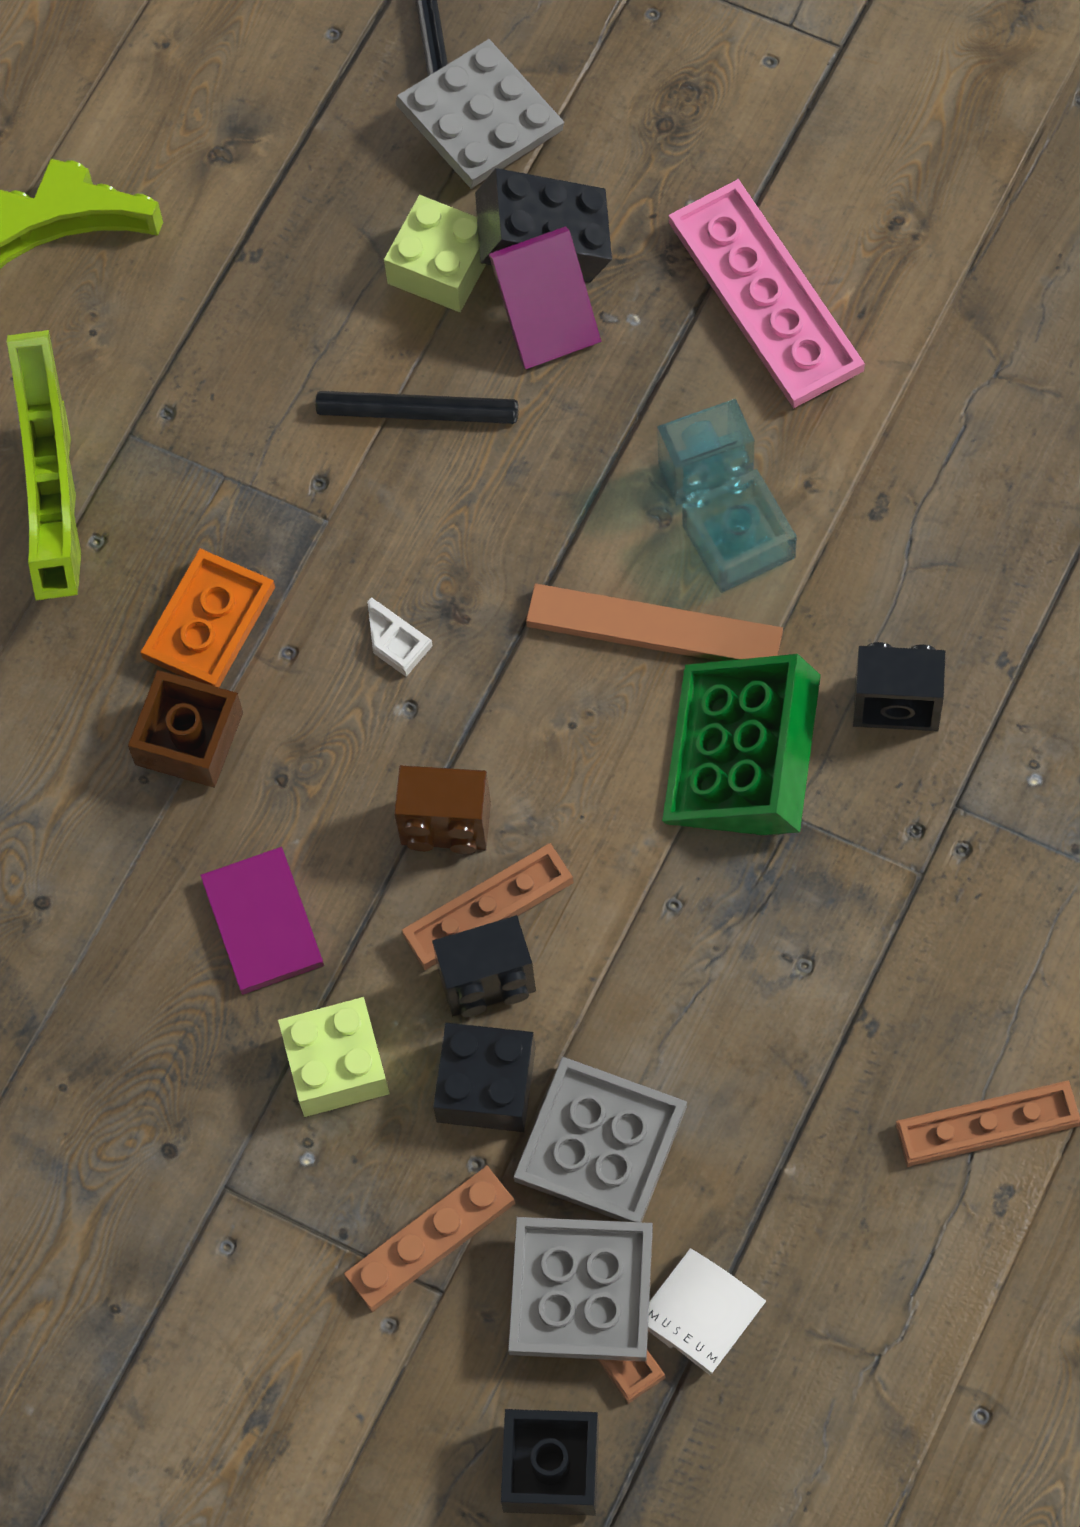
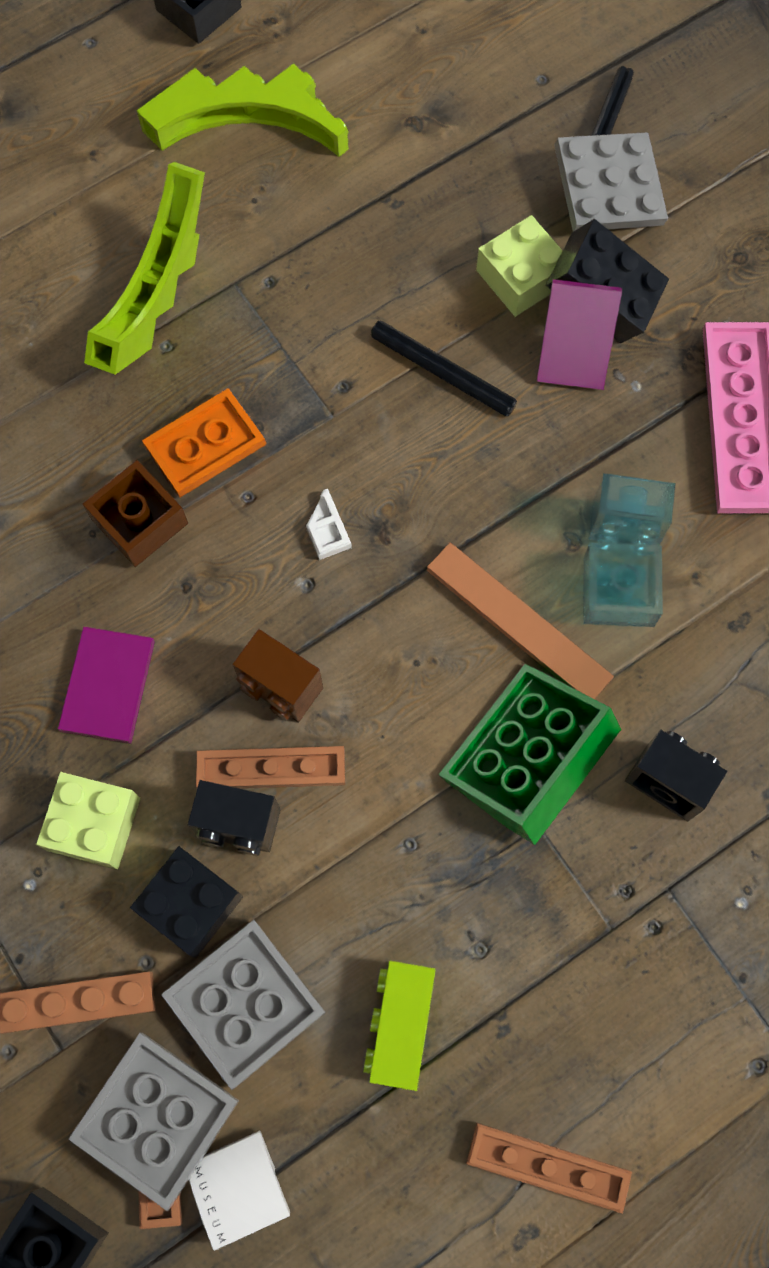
camera: 25 degrees right, 5 degrees up
(768, 1072) = (400, 1025): none -> lime brick

